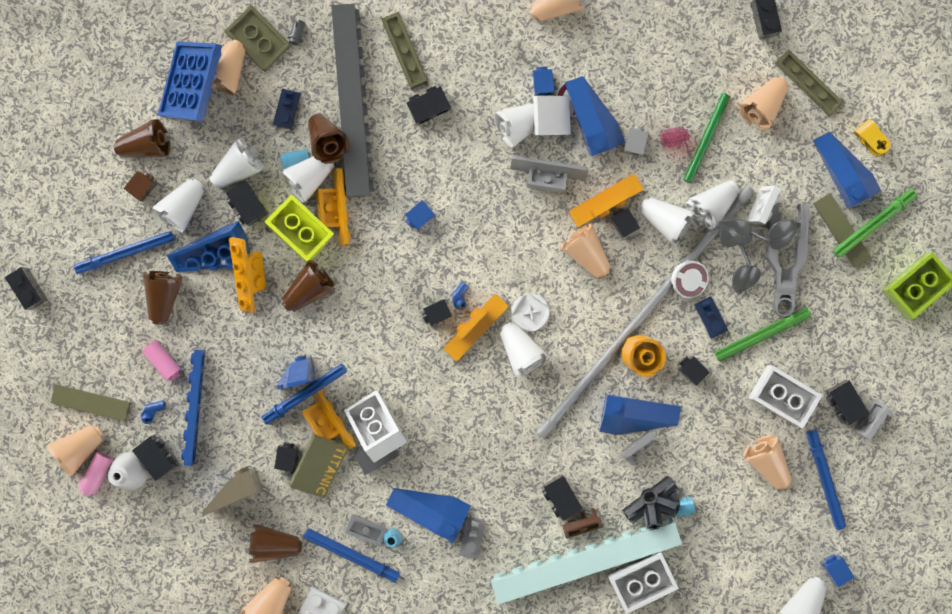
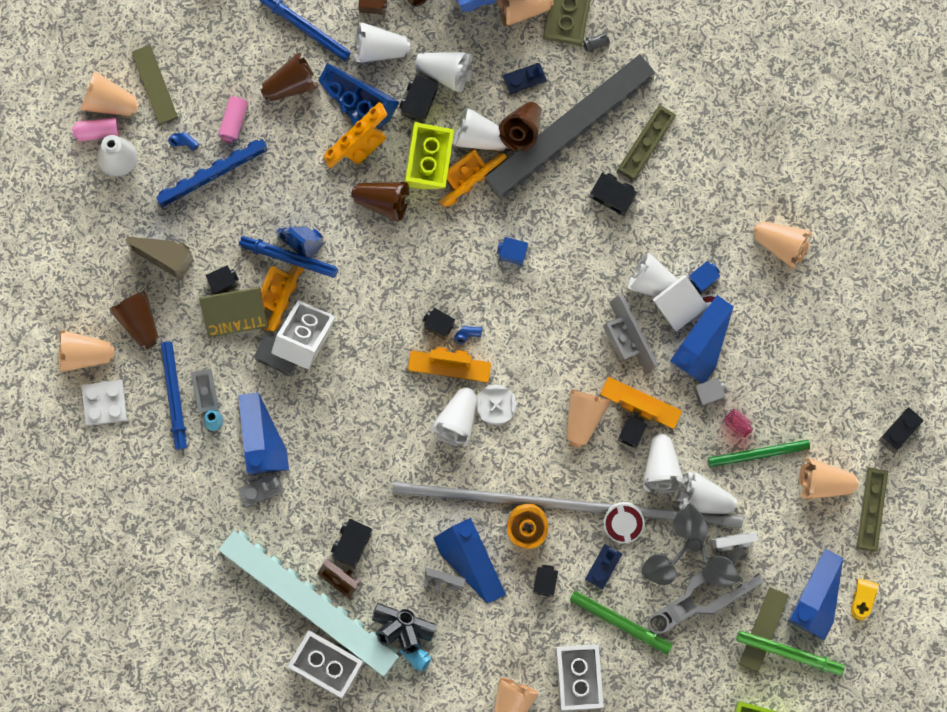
camera: 50 degrees right, 10 degrees down
(155, 457) = (145, 170): black brick -> none
(294, 157) = (487, 111): medium azure cone -> none

